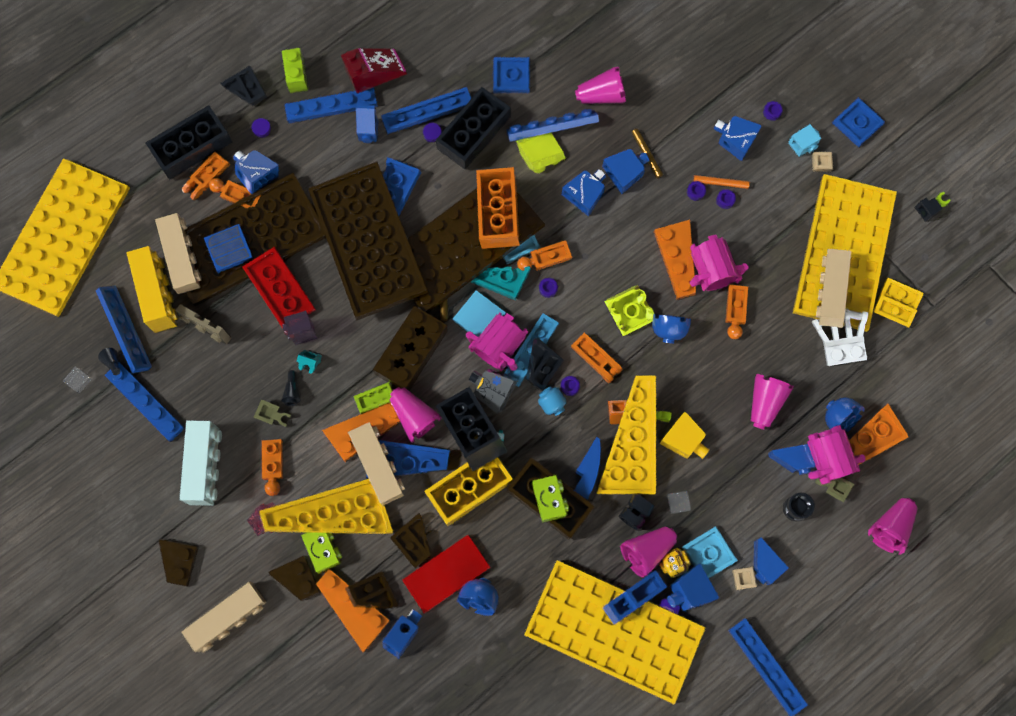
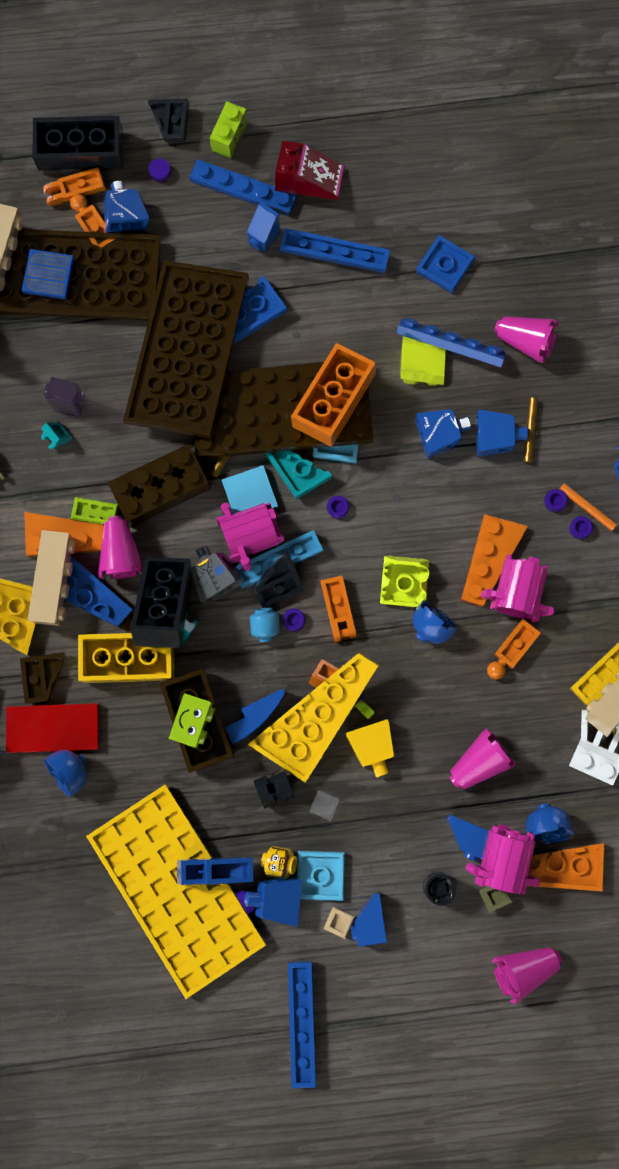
camera: 35 degrees right, 5 degrees up
(277, 285) = (73, 341): red tile -> none
(291, 393) = (17, 458): black cone -> none
(431, 132) = (325, 276): dark purple tile -> none
(473, 128) = (369, 283): black brick -> none
(546, 256) = (355, 474): orange plate -> none
(648, 549) = (261, 832): dark pink cone -> none

